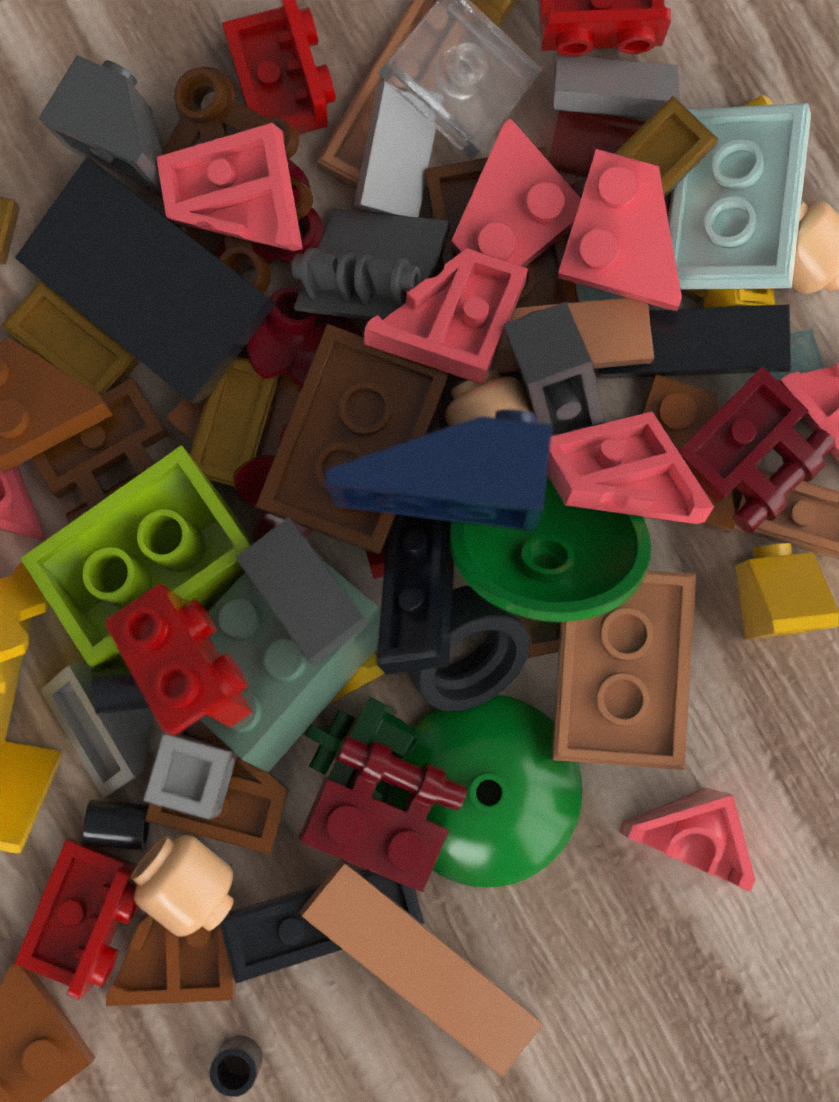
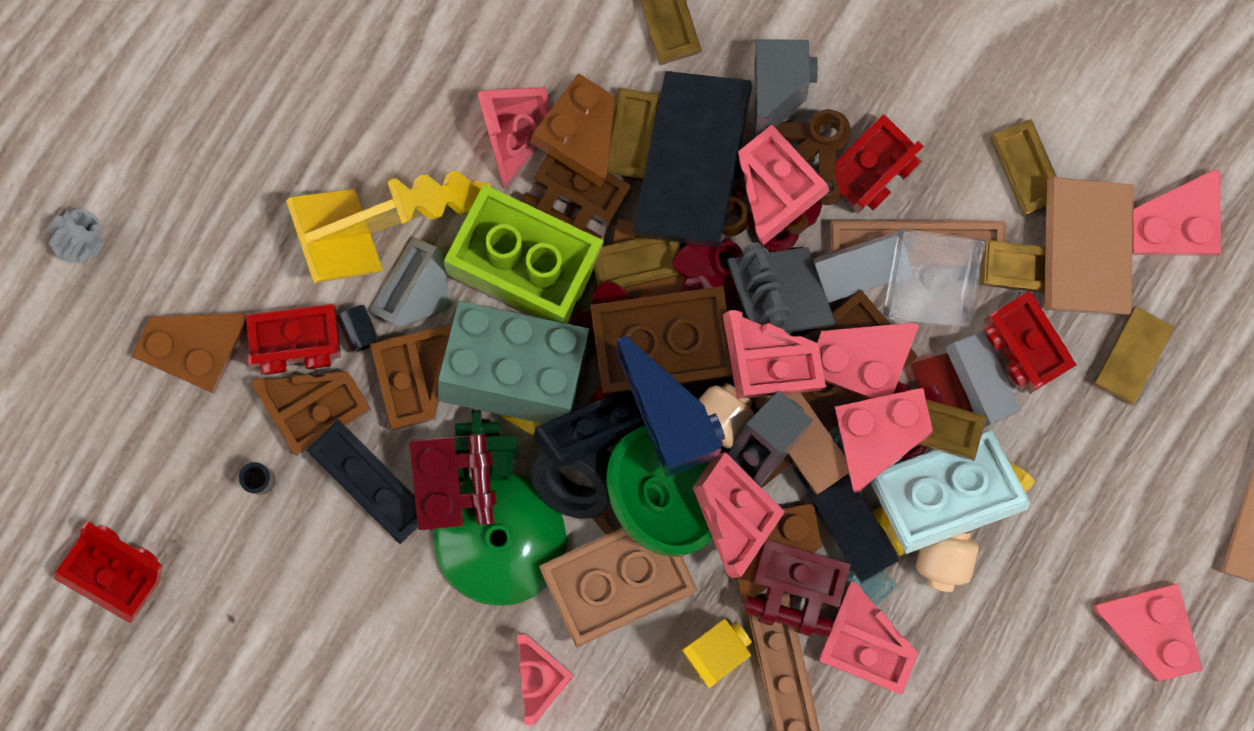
camera: 60 degrees right, 0 degrees up
(116, 690) = (441, 287): black hinge -> none
(176, 661) = (473, 311): red bracket -> none
(183, 885) = (346, 387): light nougat head -> none
(191, 775) = (412, 356): light grey brick -> none
(302, 591) = (554, 360): dark grey tile -> none
(421, 967) = (373, 556): nougat tile -> none

